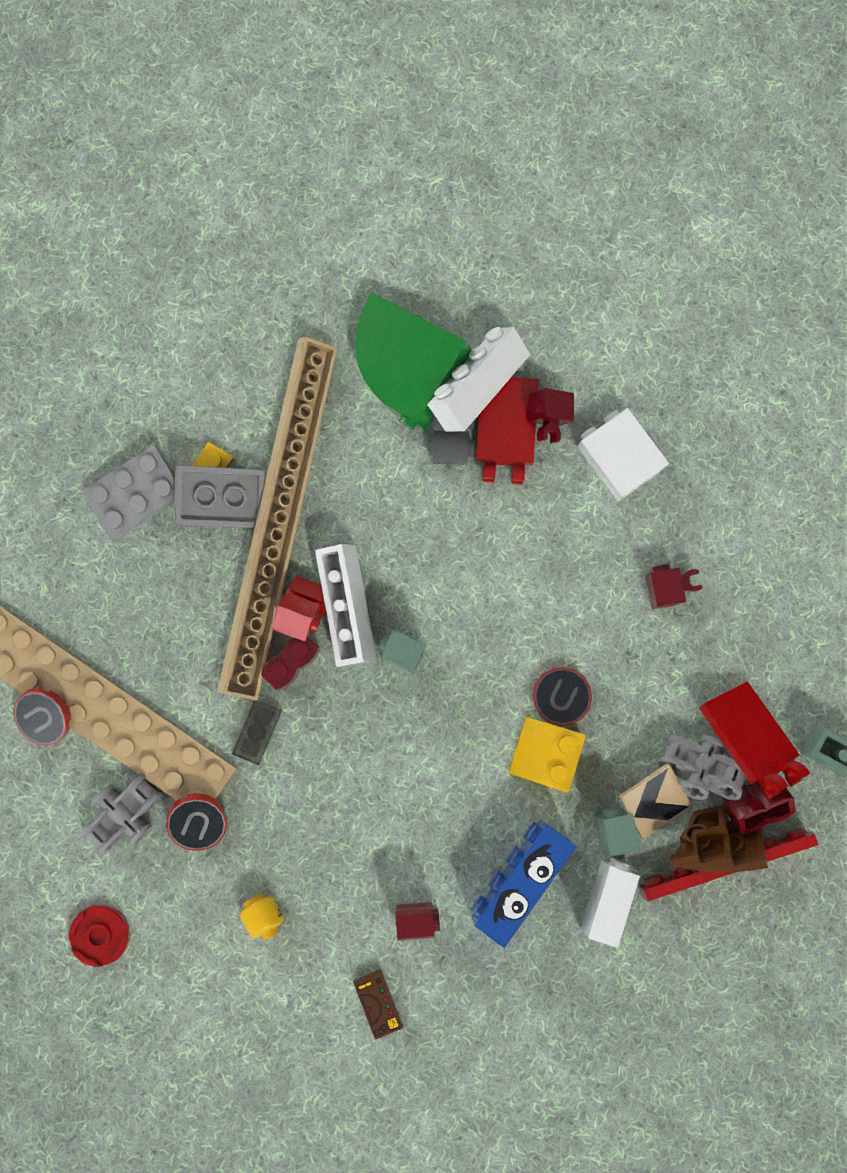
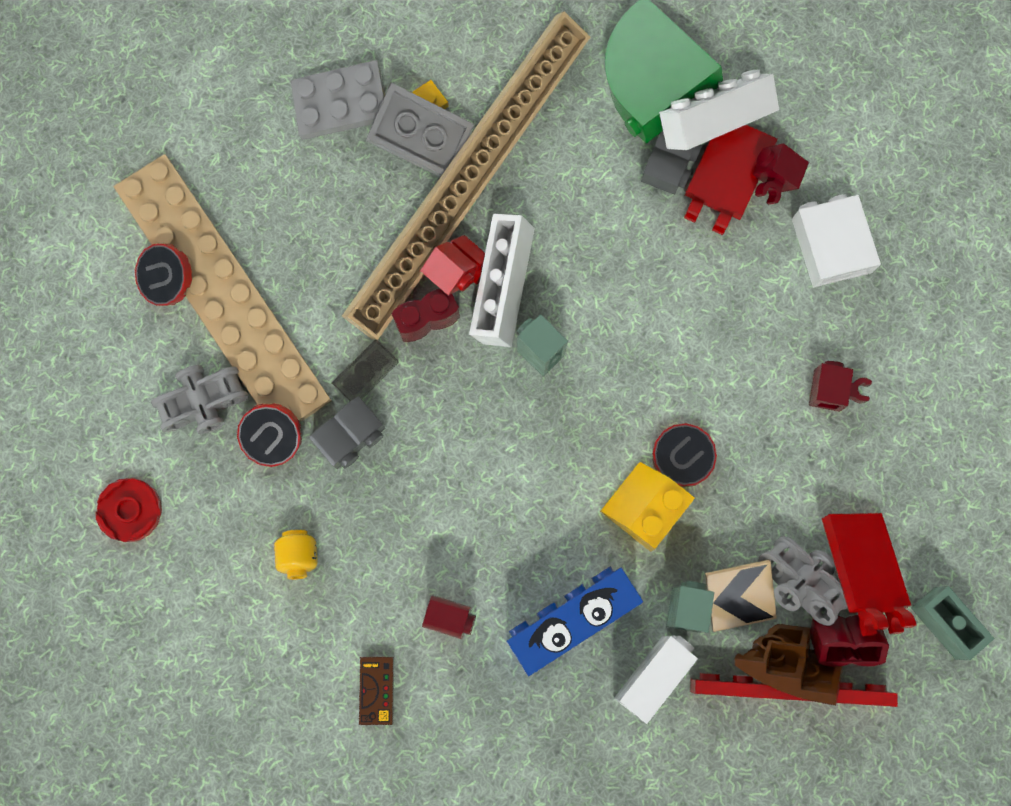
camera: 25 degrees right, 5 degrees down
(264, 792) = (348, 433): none -> dark grey brick

